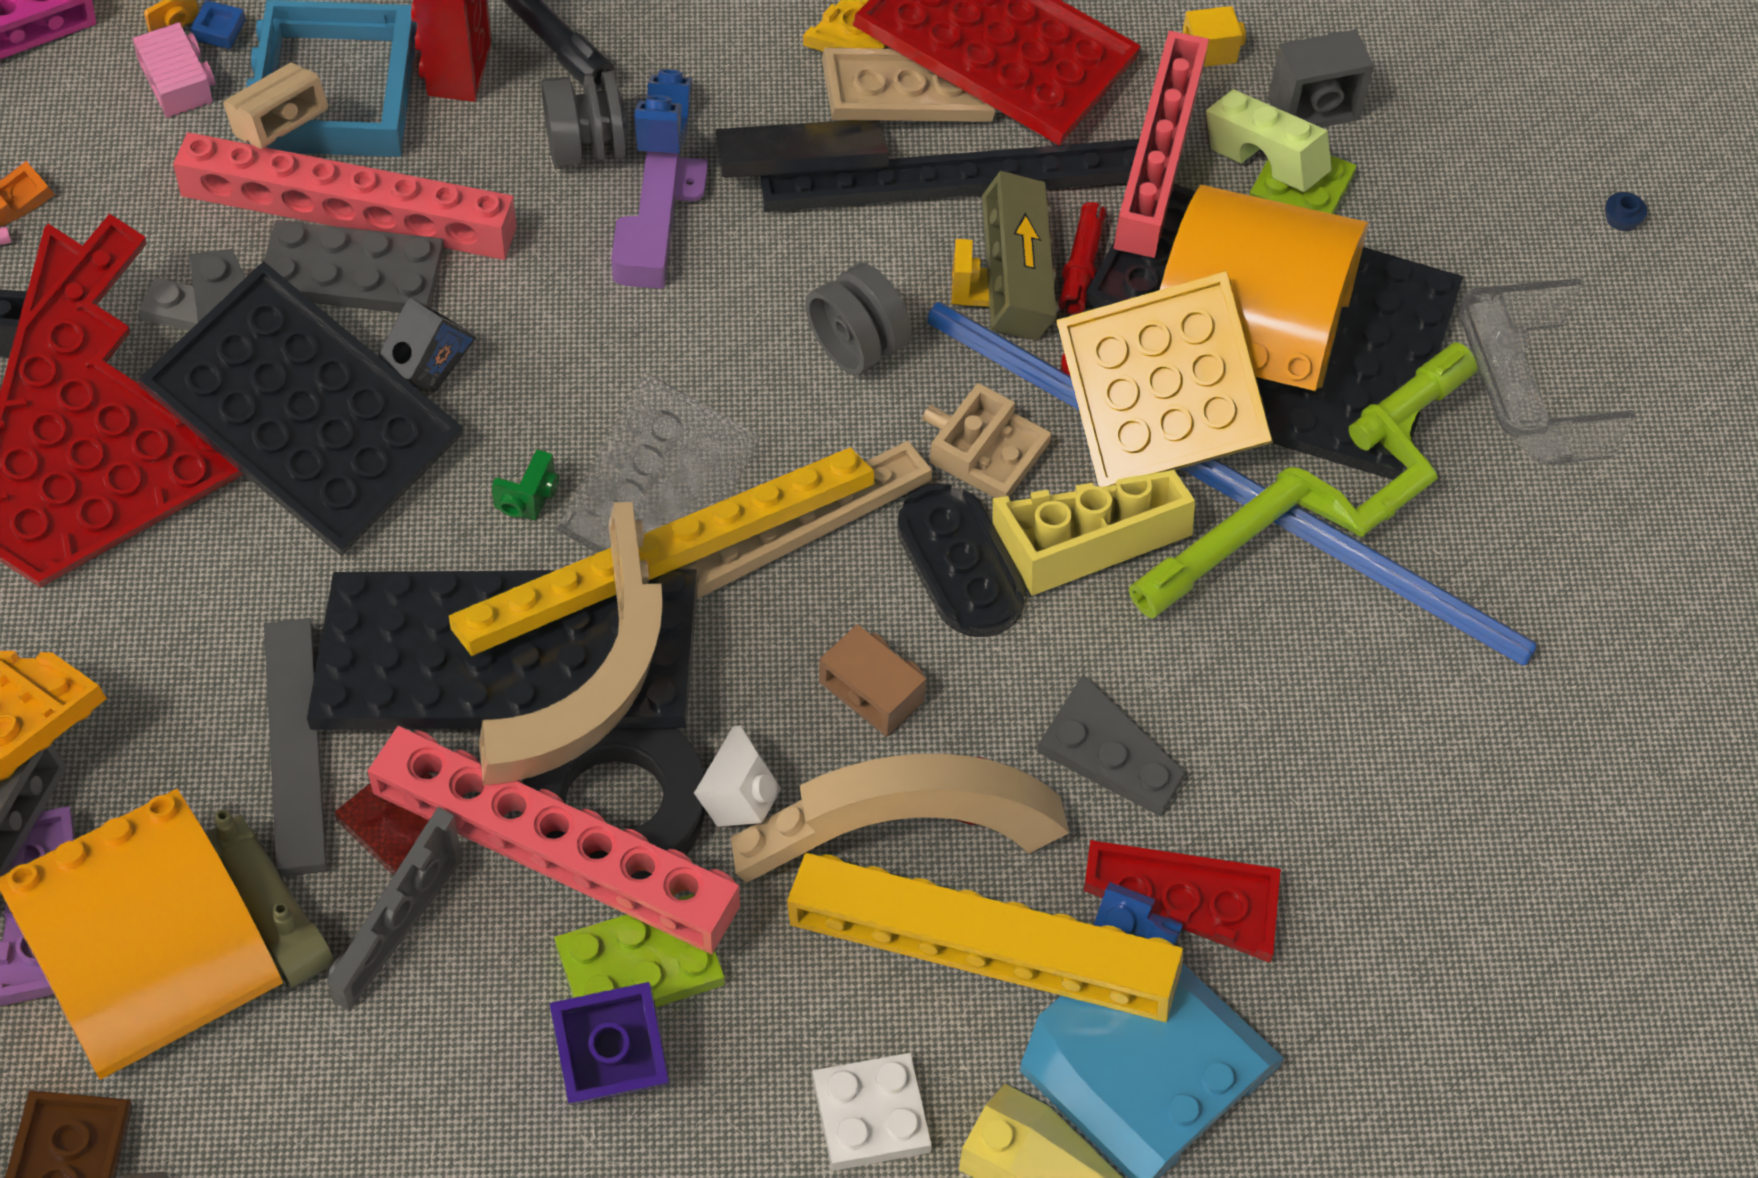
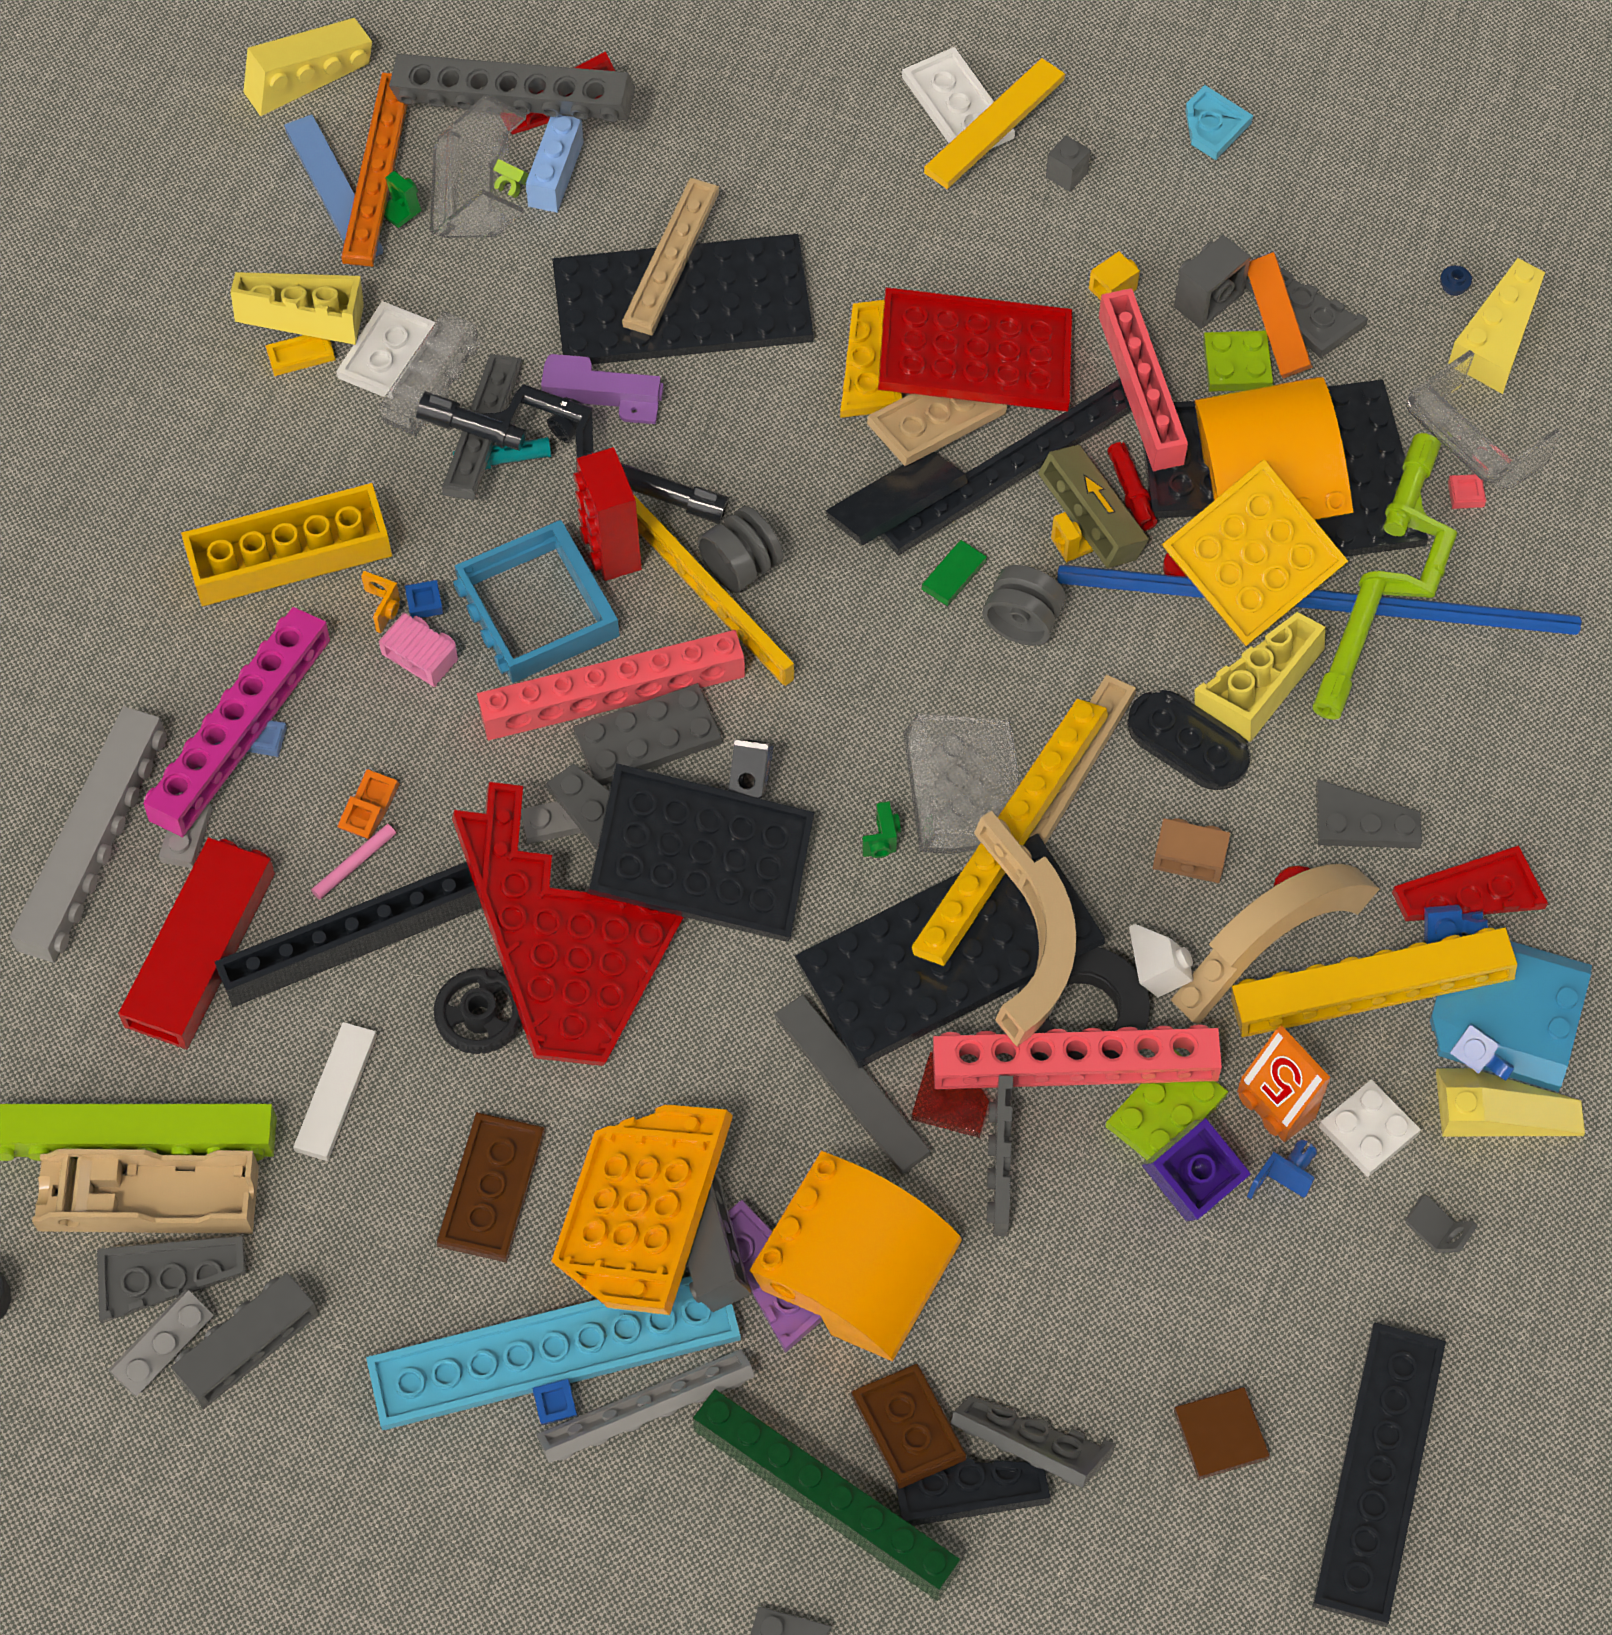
camera: 25 degrees left, 5 degrees up
(275, 105) = (530, 643): tan brick -> none
(286, 931) = (955, 1208): olive piece -> none
(524, 150) = (714, 595): none -> yellow tile
(644, 240) = (834, 616): medium lavender piece -> none
(664, 116) = (795, 528): blue slope -> none
(729, 1108) = (1288, 1171): none -> blue bracket
(779, 1001) = (1283, 1086): none -> orange slope
(814, 257) = (954, 573): none -> green tile
(986, 442) = (1156, 650): tan plate -> none
(1061, 1086) = (1478, 1050): none -> plate
(1294, 146) = (1227, 339): yellowish green arch -> none
(1378, 150) = (1278, 316): none -> orange tile
(1415, 160) = (1321, 321): none -> dark grey wing
(1486, 444) = (1466, 491): none -> coral tile
(1645, 278) = (1500, 326): none -> light yellow wedge

